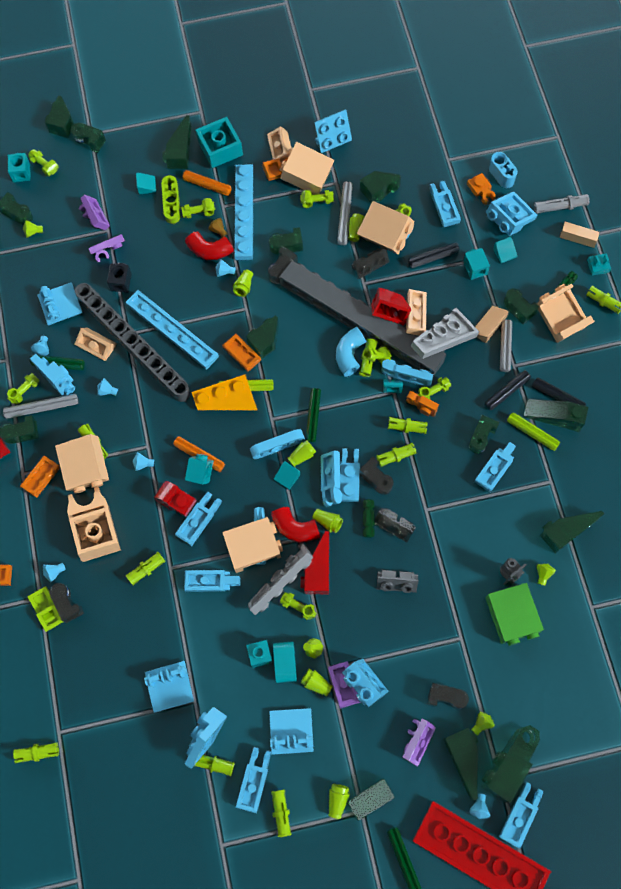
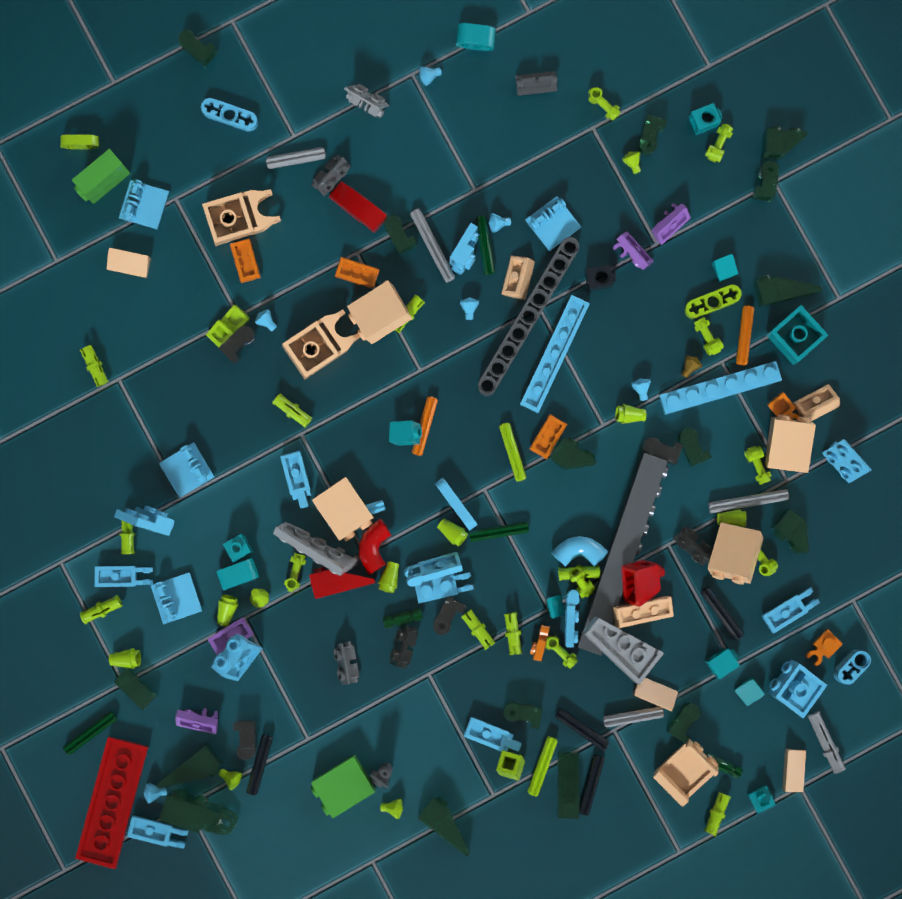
camera: 70 degrees right, 15 degrees up
(15, 395) = (435, 216): lime bar -> none
(141, 462) = (399, 369): medium azure rock -> none
(174, 499) = (367, 418): red brick -> none
(197, 520) = (354, 446): medium azure hinge -> none
(208, 250) = (659, 365): red cylinder -> none
(226, 395) = (494, 435): light orange wing -> none
(287, 475) = (425, 523): teal slope -> none
(475, 691) = (259, 764): none -> black axle
(527, 455) = (510, 765): none -> lime brick

